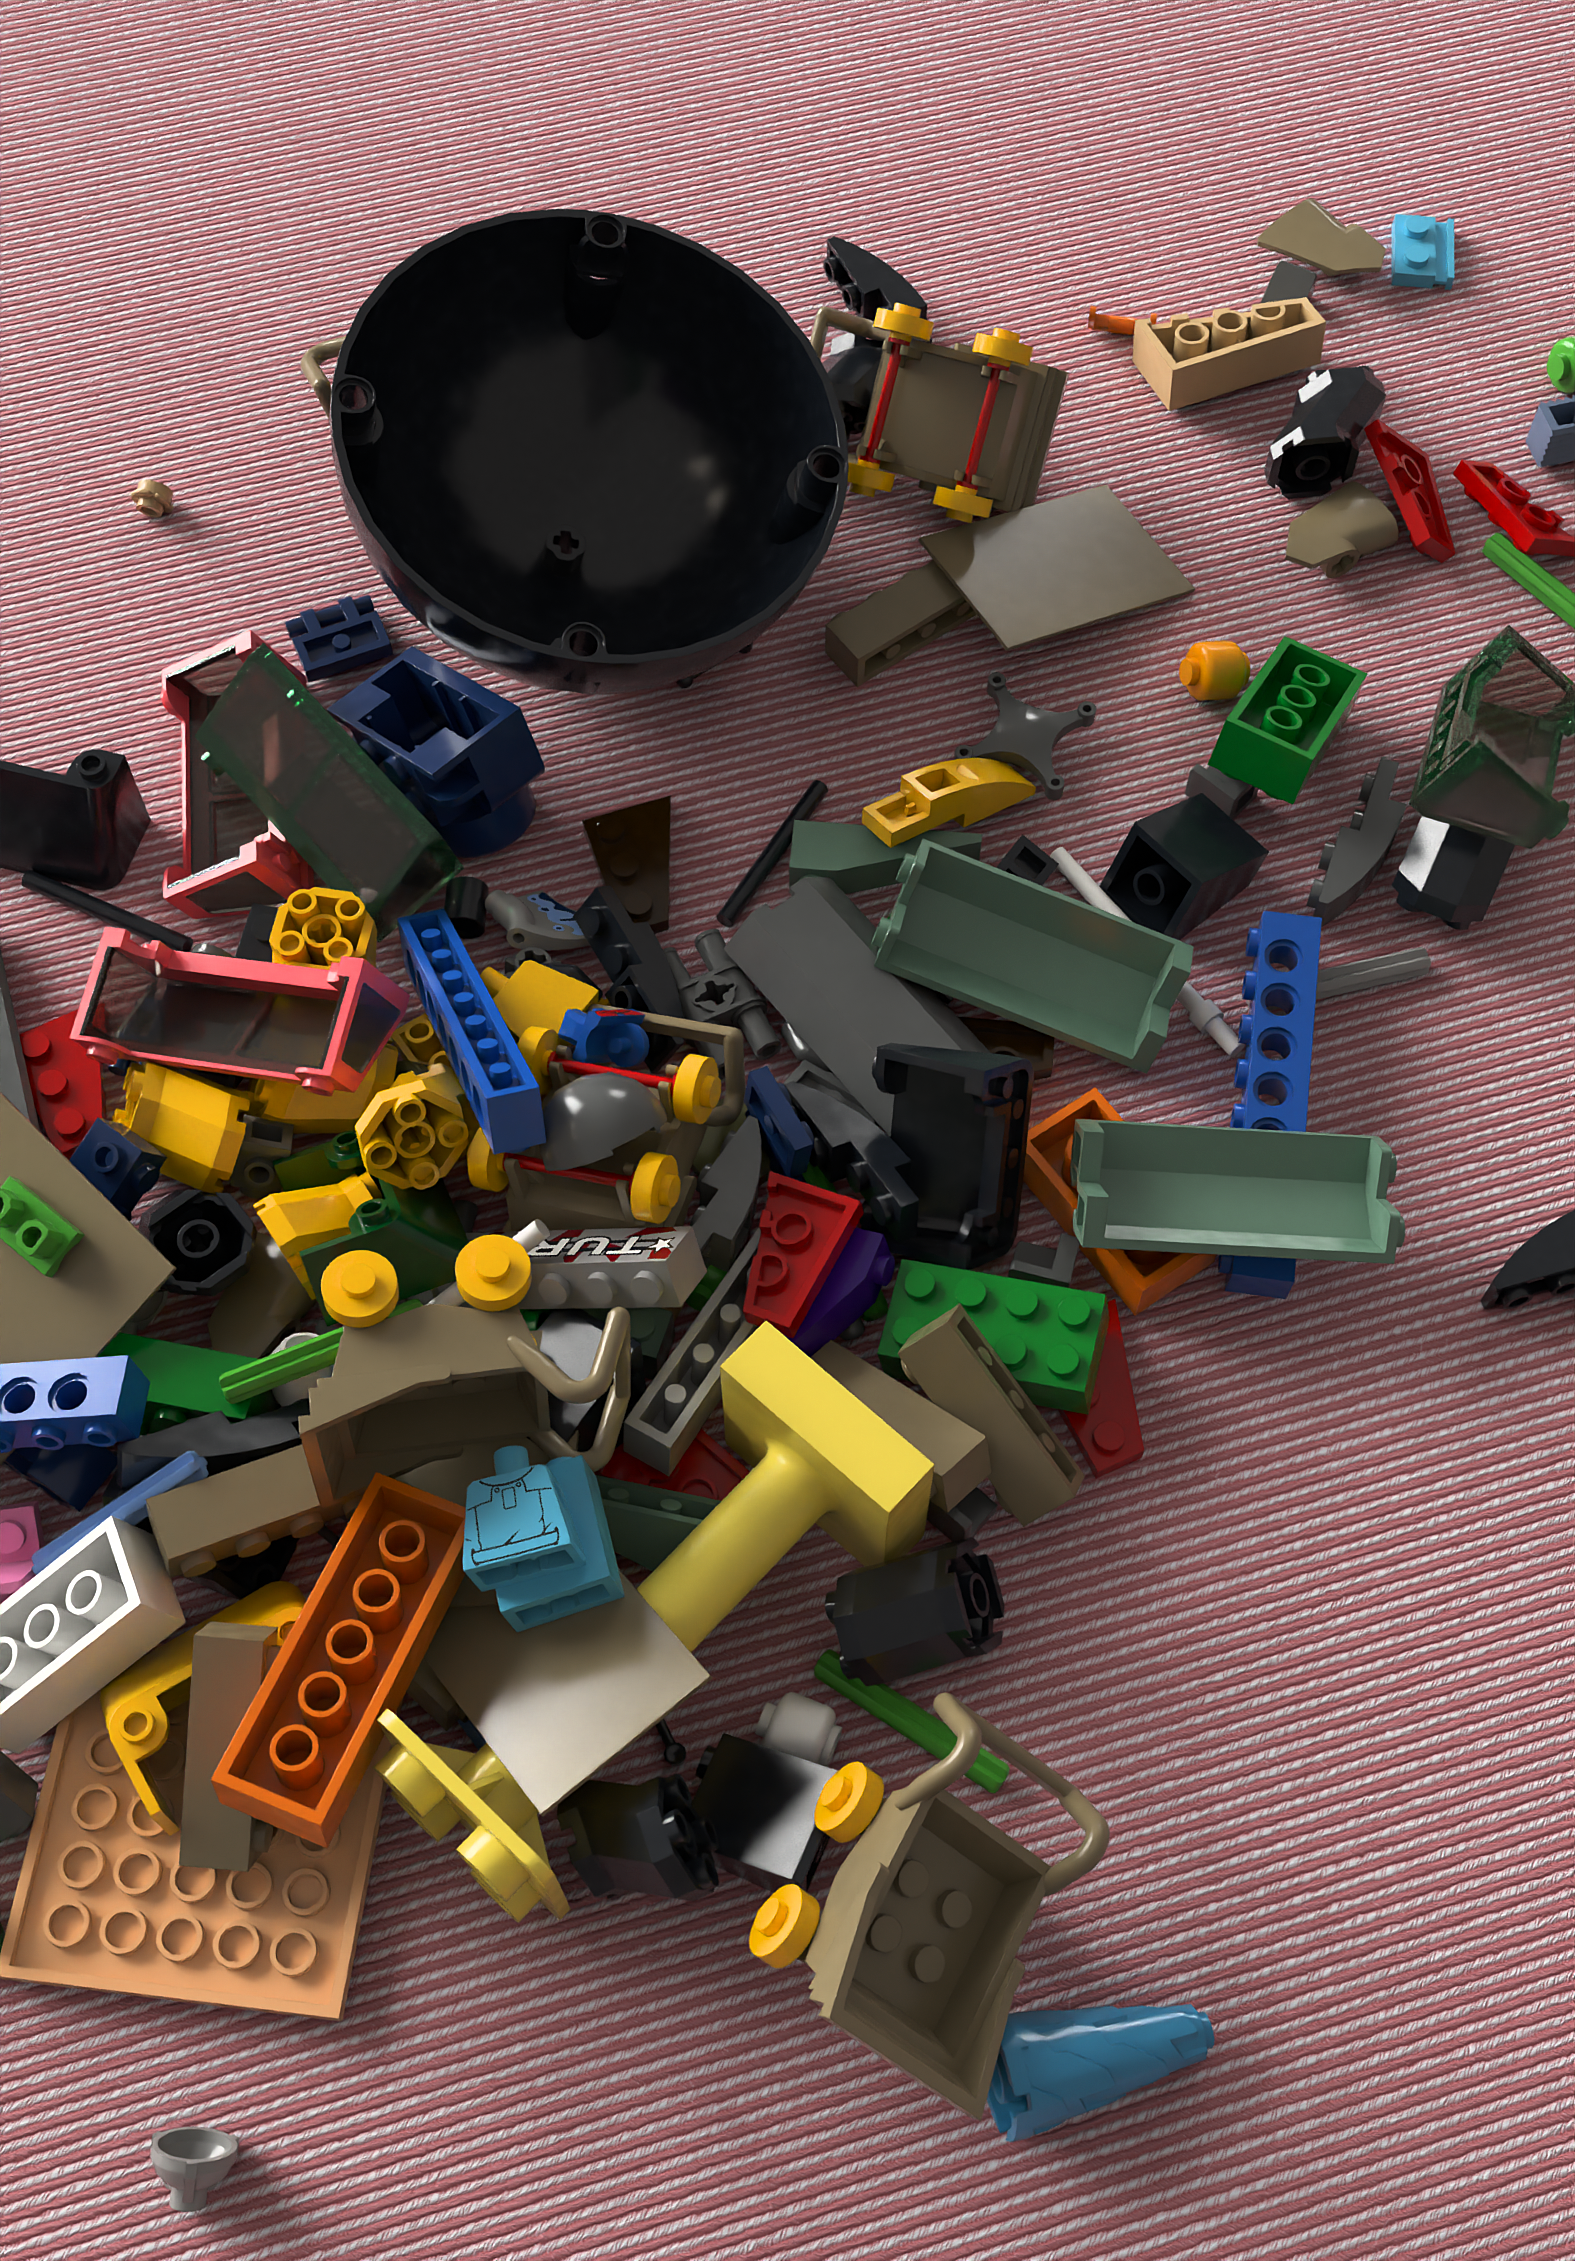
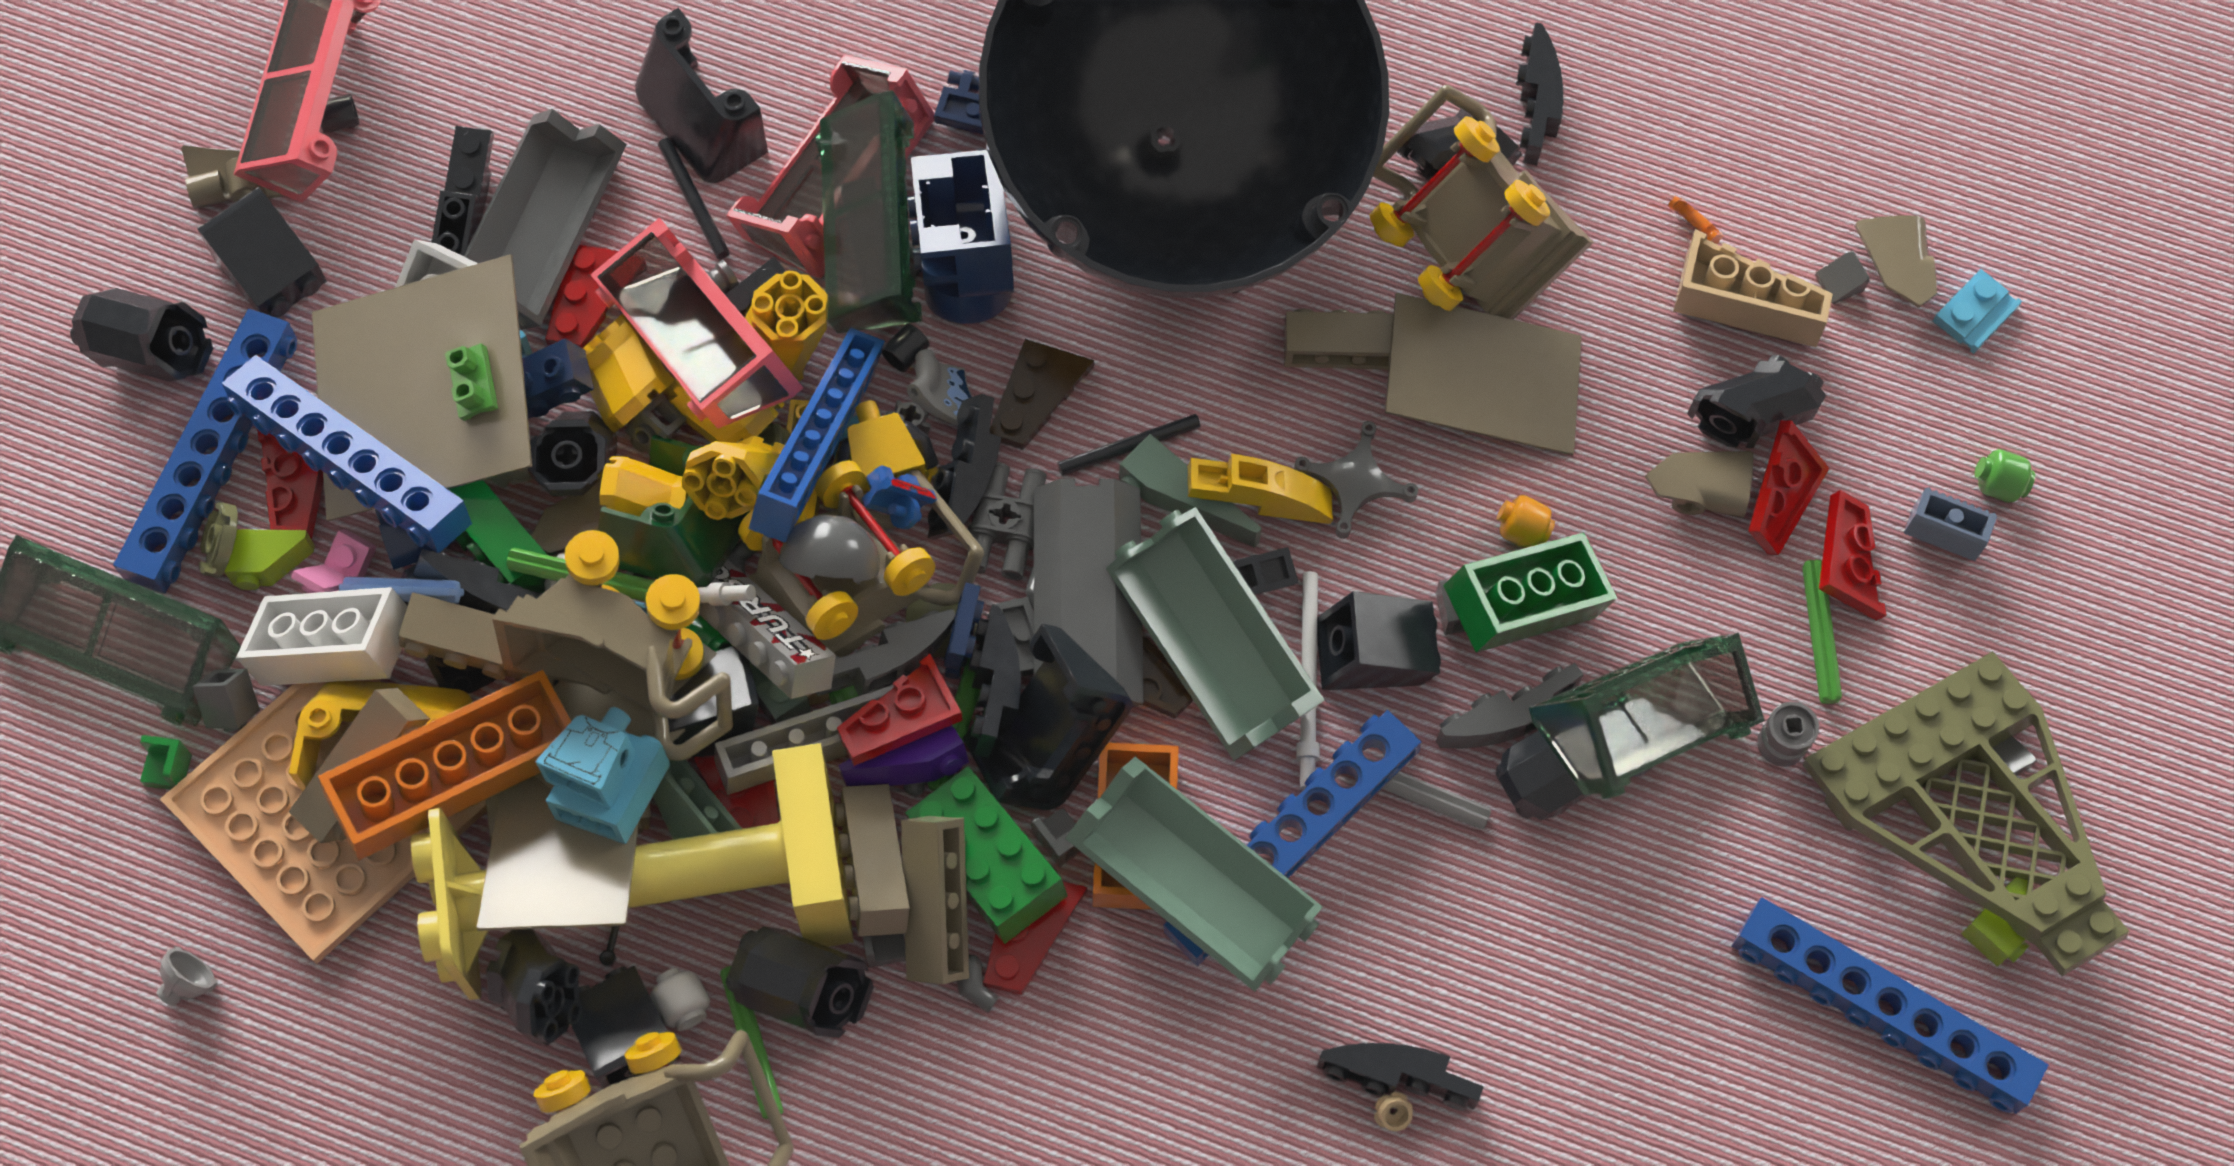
camera: 35 degrees right, 5 degrees up
(1100, 1487) = (973, 988): none -> dark grey arm

